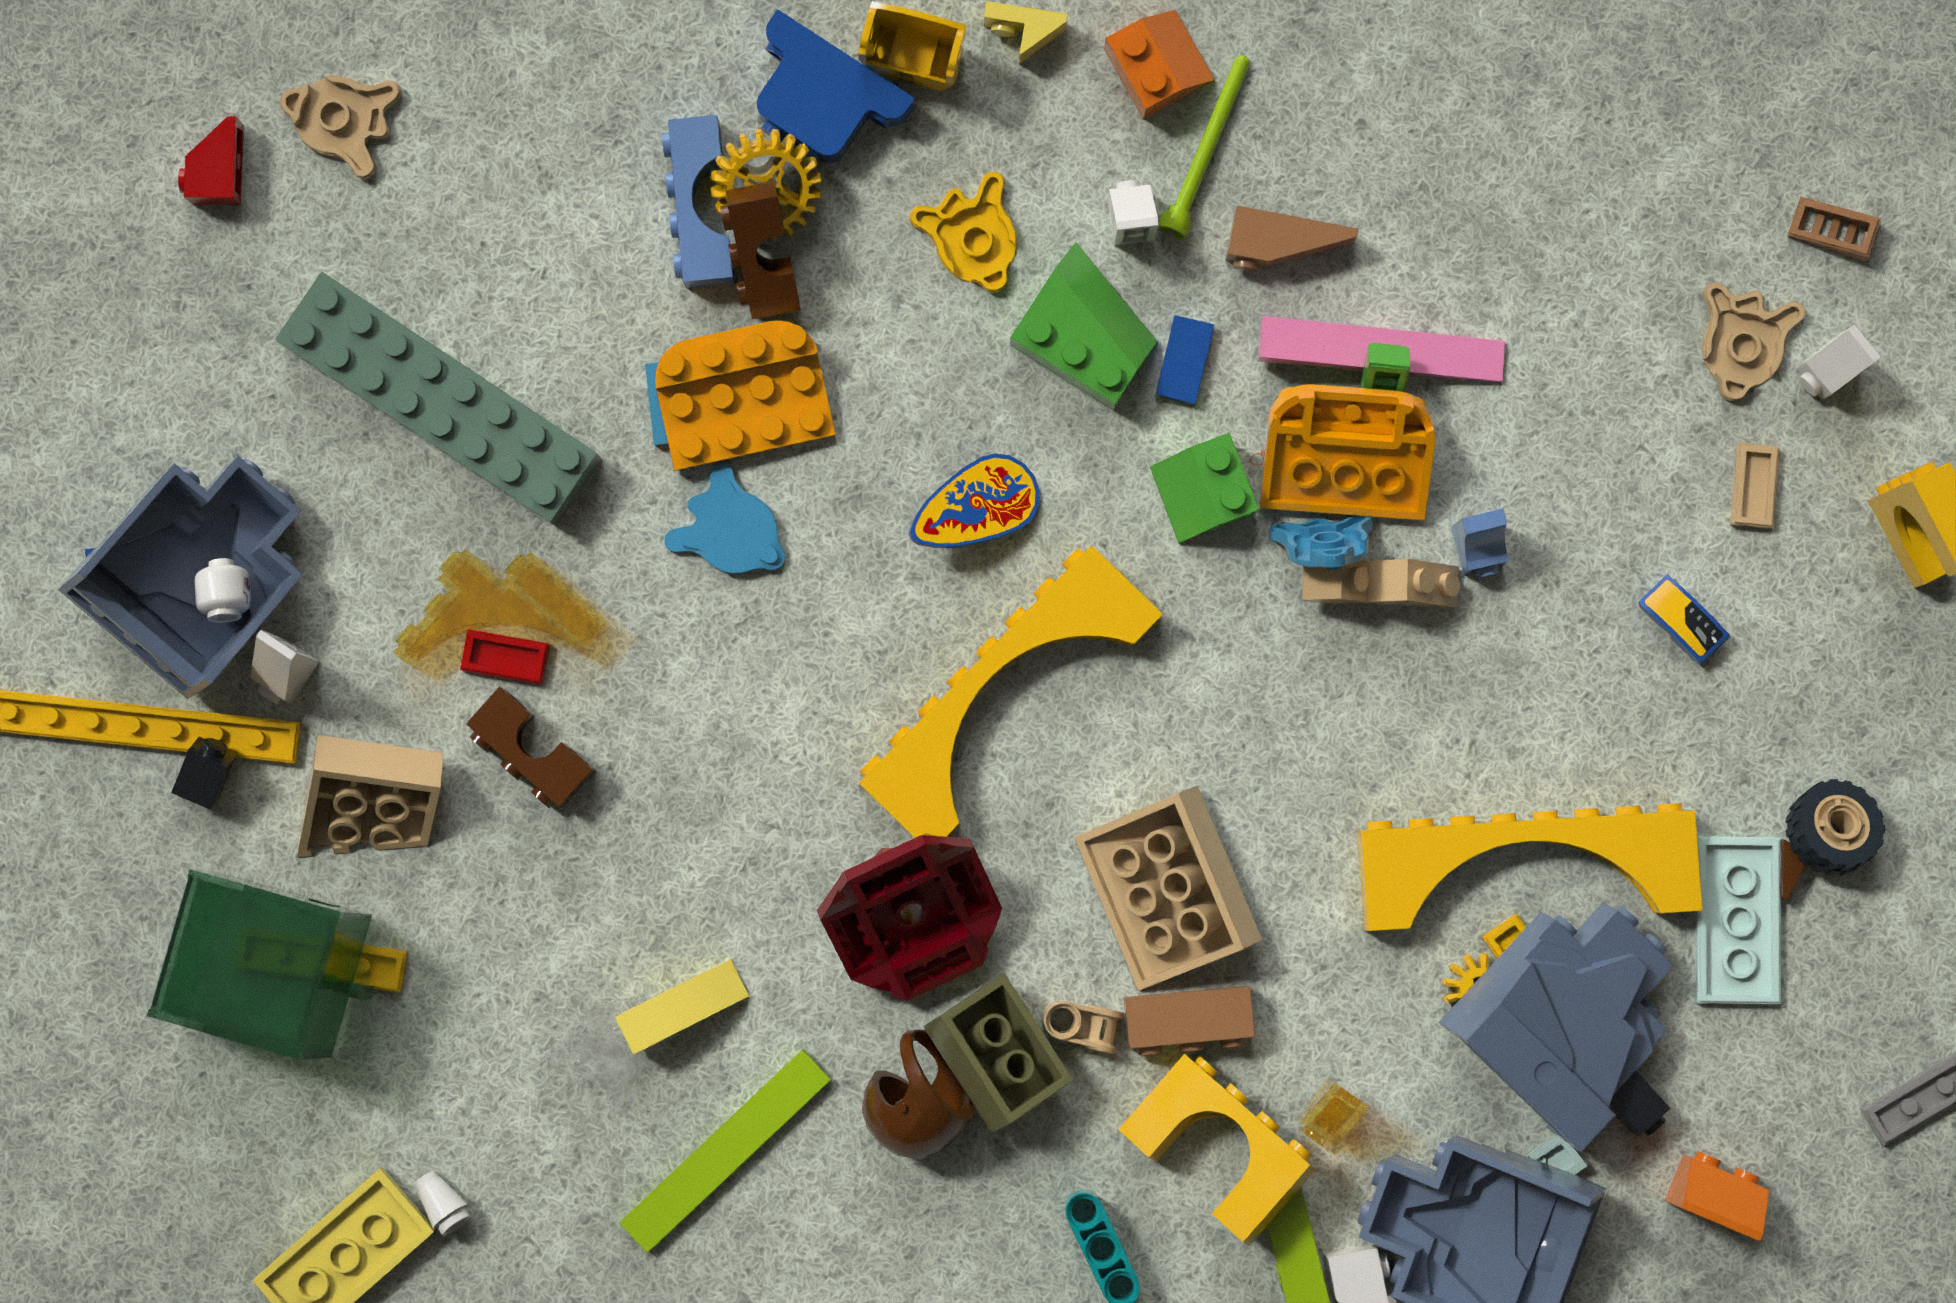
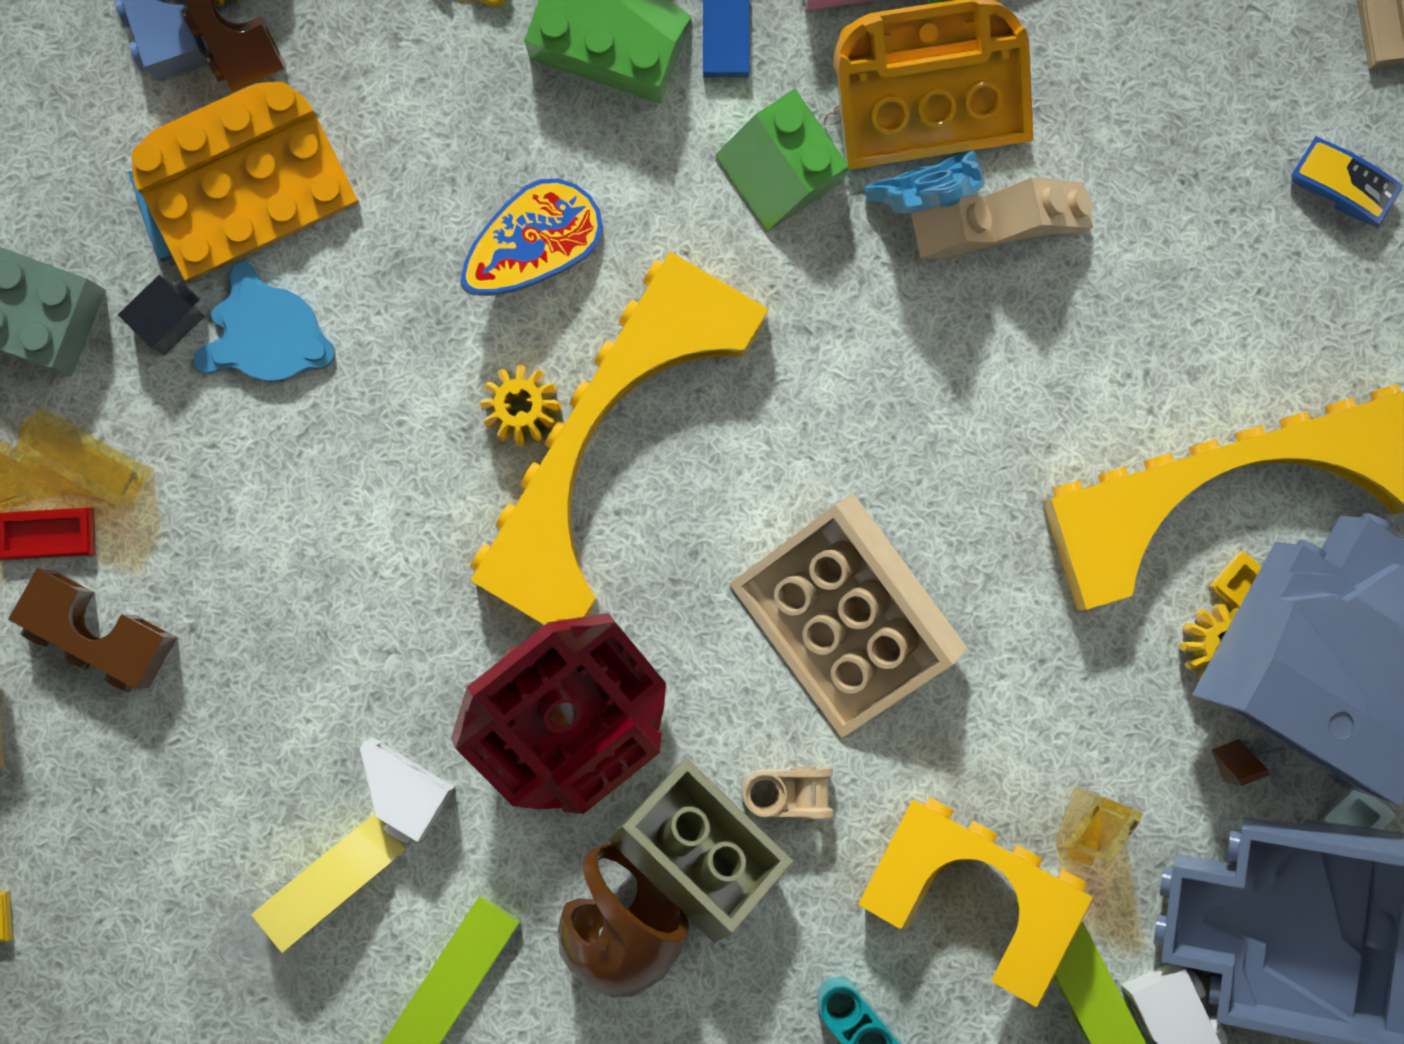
camera: 10 degrees left, 0 degrees up
(649, 493) = (162, 313): none -> black brick
(760, 947) = (402, 791): none -> white slope
(933, 629) = (523, 421): none -> yellow gear
(1189, 1019) = (907, 757): medium nougat brick -> none
(1466, 1090) = (1238, 764): none -> reddish brown piece
(1481, 543) = (1105, 145): medium blue arch -> none

